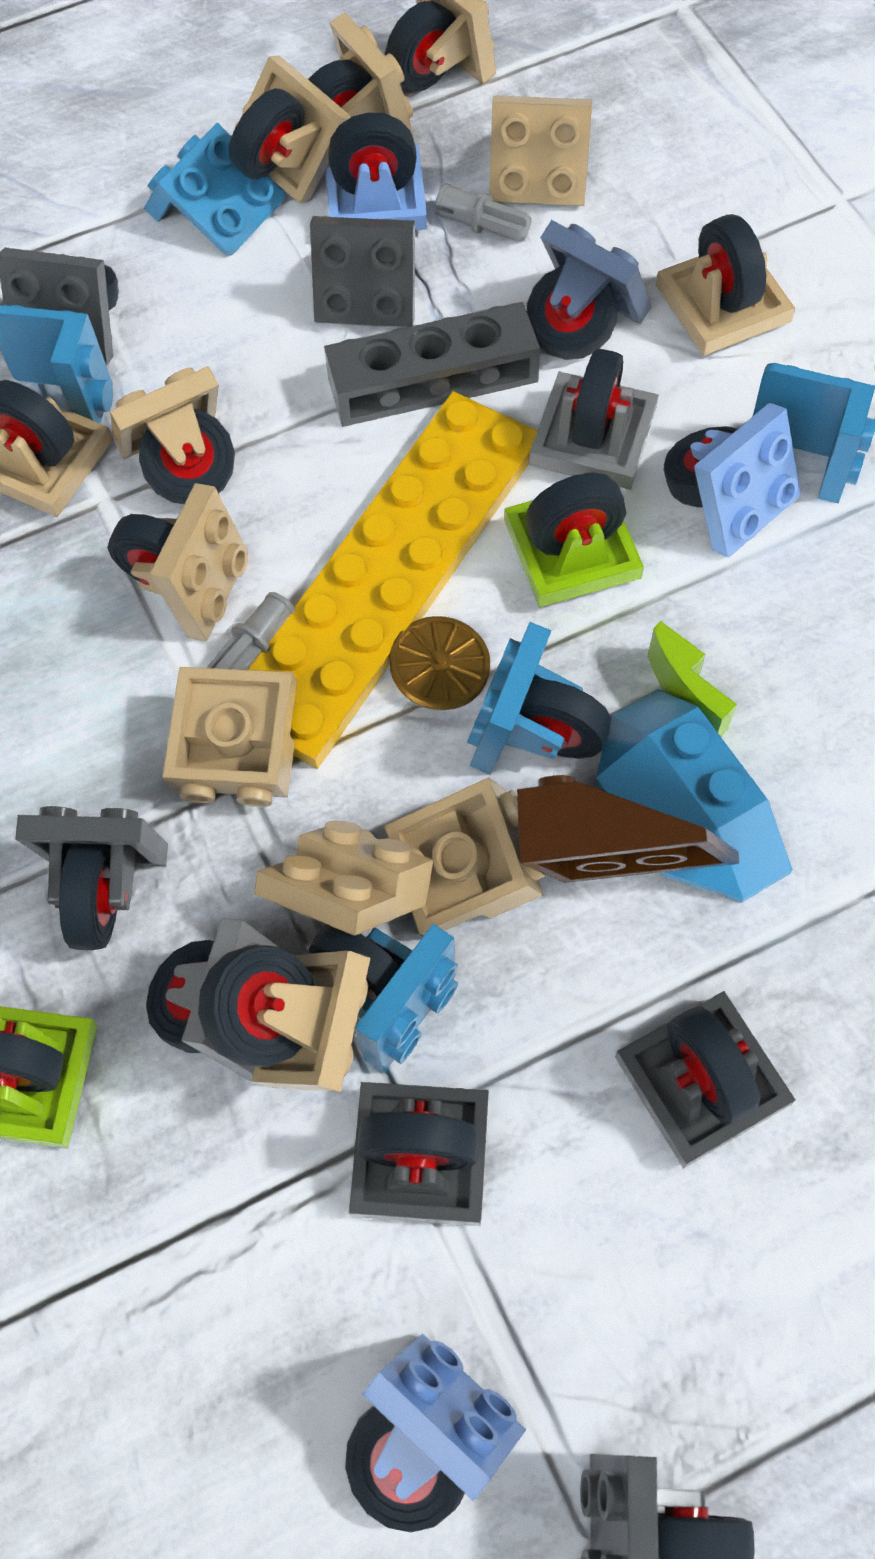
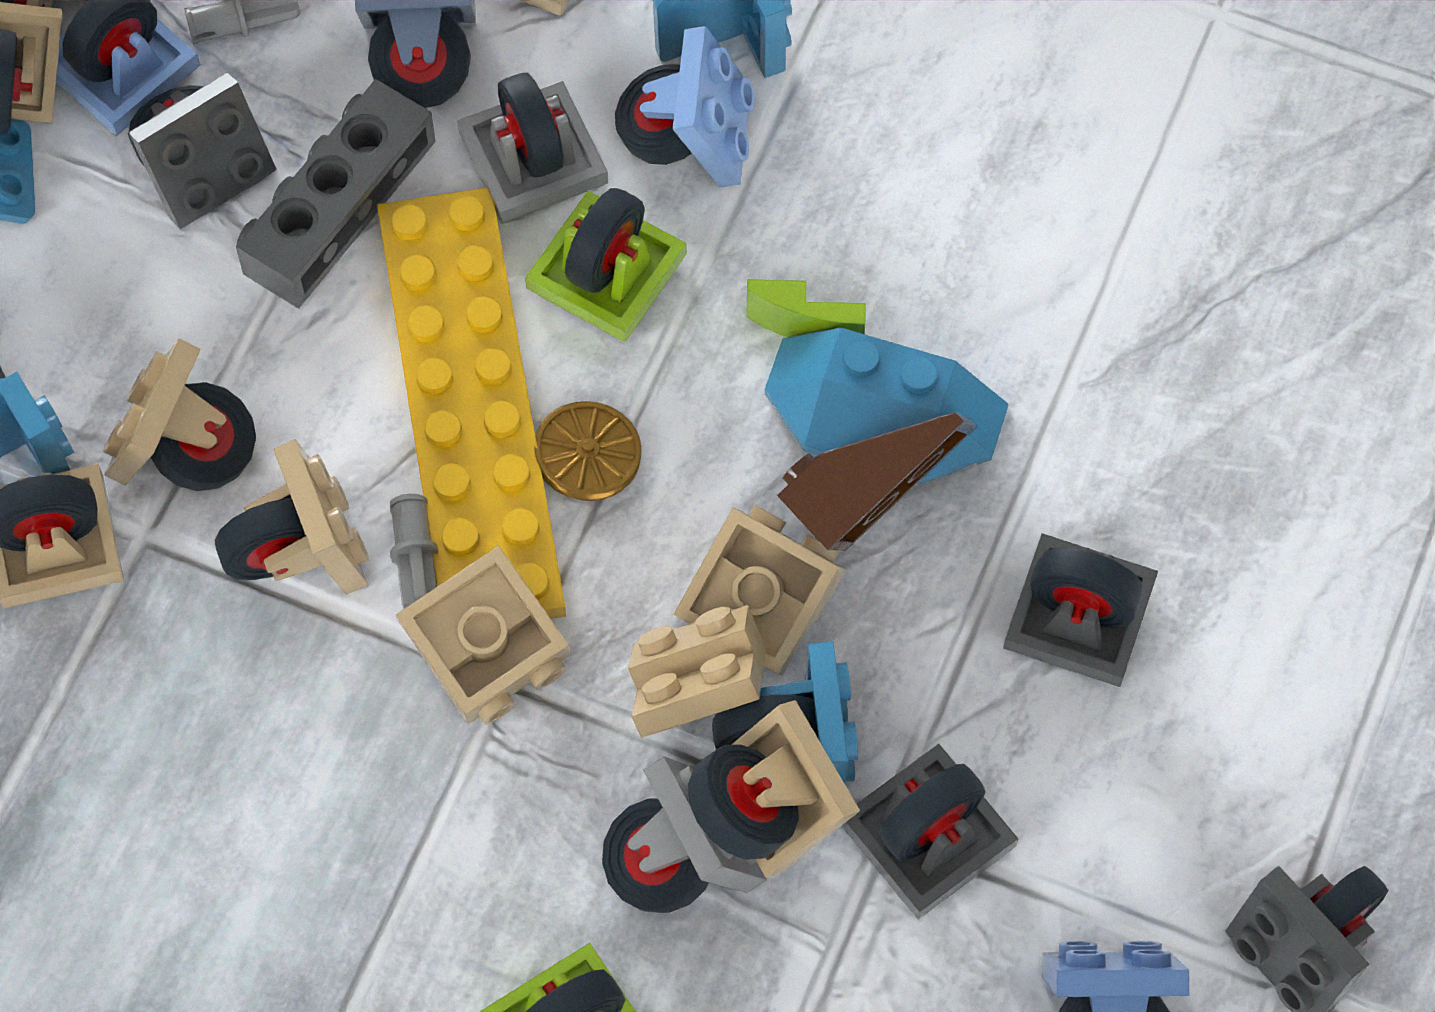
camera: 45 degrees left, 0 degrees up
(90, 866) = (480, 827): dark grey plate -> none
(536, 709) = (709, 428): dark azure plate -> none

